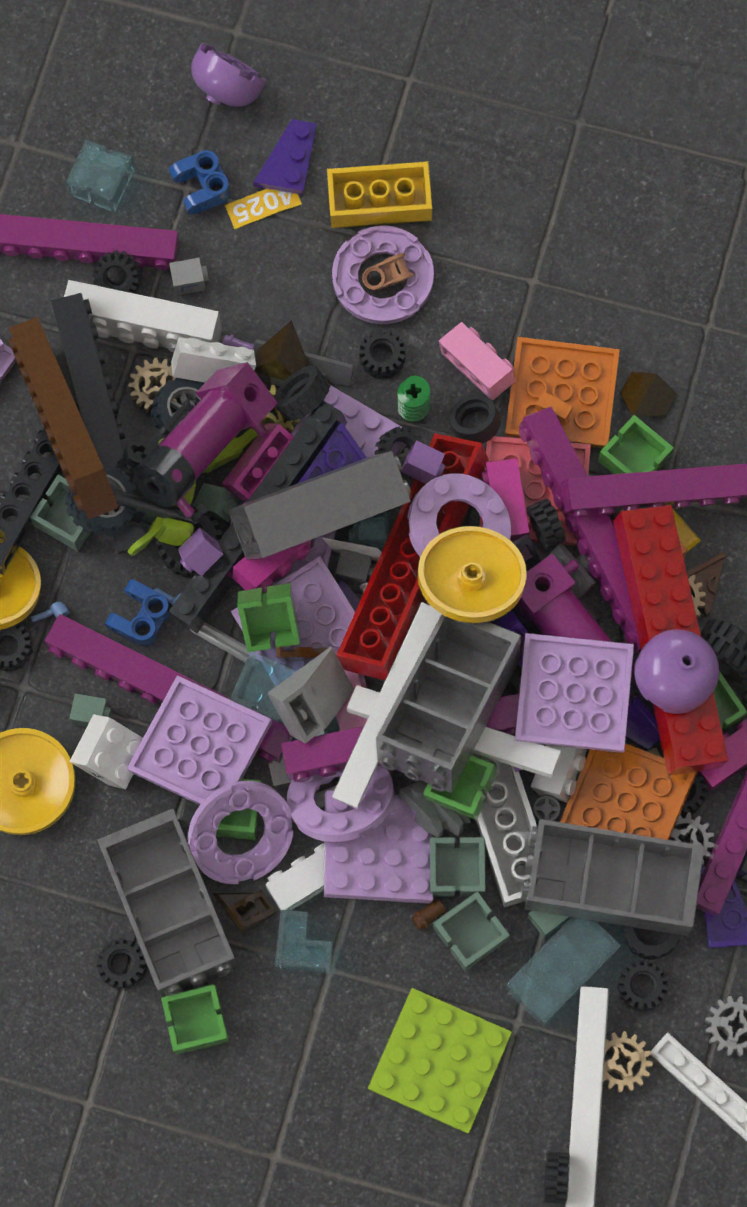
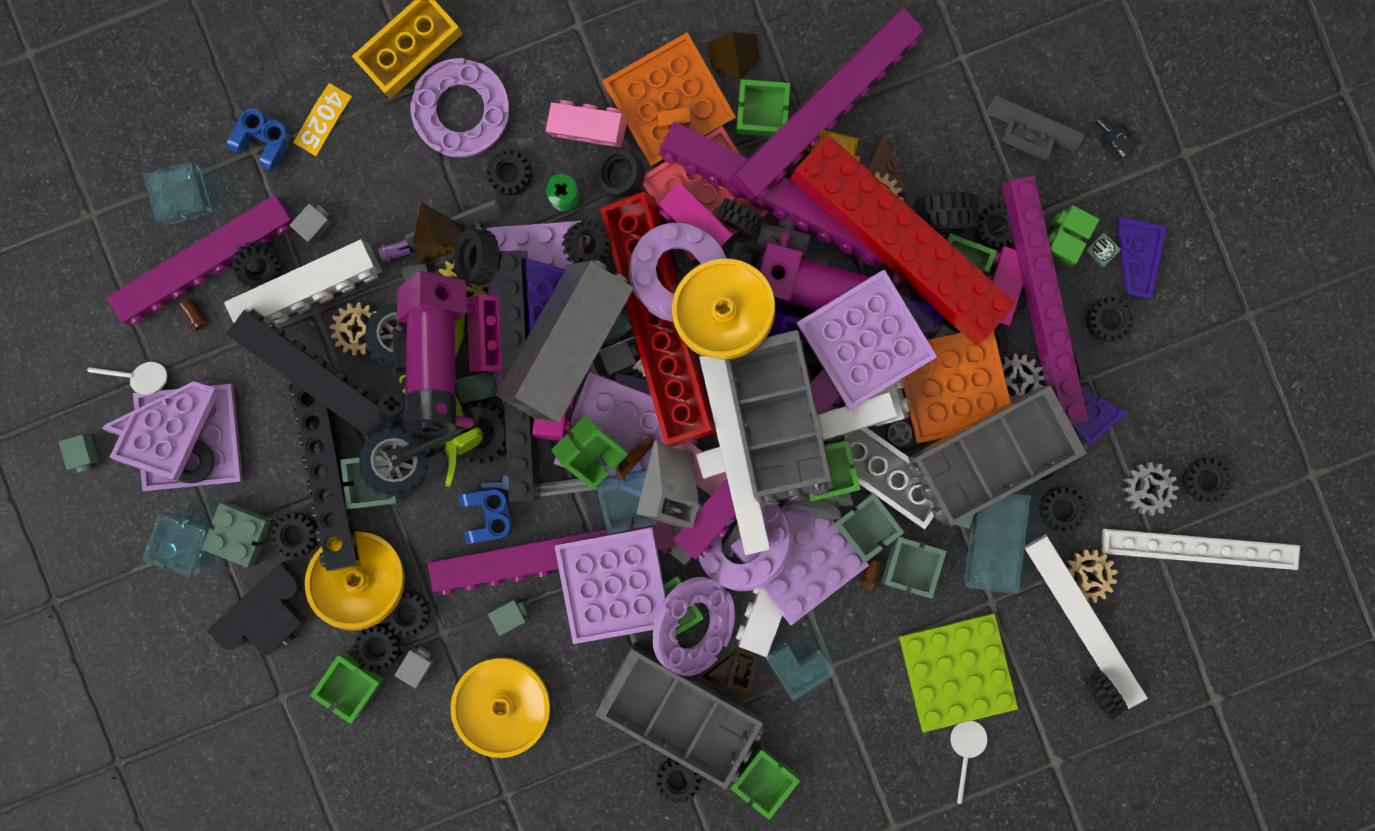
camera: 40 degrees left, 15 degrees up
(33, 276) = (192, 314): none -> reddish brown pin
(56, 609) = (423, 556): medium blue hand -> none
(61, 419) = (313, 425): reddish brown brick -> none
(107, 751) = (546, 639): white brick -> none
(199, 552) = (499, 442): medium lavender brick -> none
(201, 359) = (380, 286): white brick -> none
(225, 77) = (210, 37): medium lavender cylinder -> none
(289, 160) = (314, 67): dark purple wing -> none
(389, 272) = (464, 103): nougat piece -> none
(402, 1129) = (969, 741): none -> white piece
(423, 463) = (613, 242): medium lavender brick -> none
(677, 671) = (923, 275): medium lavender cylinder -> none

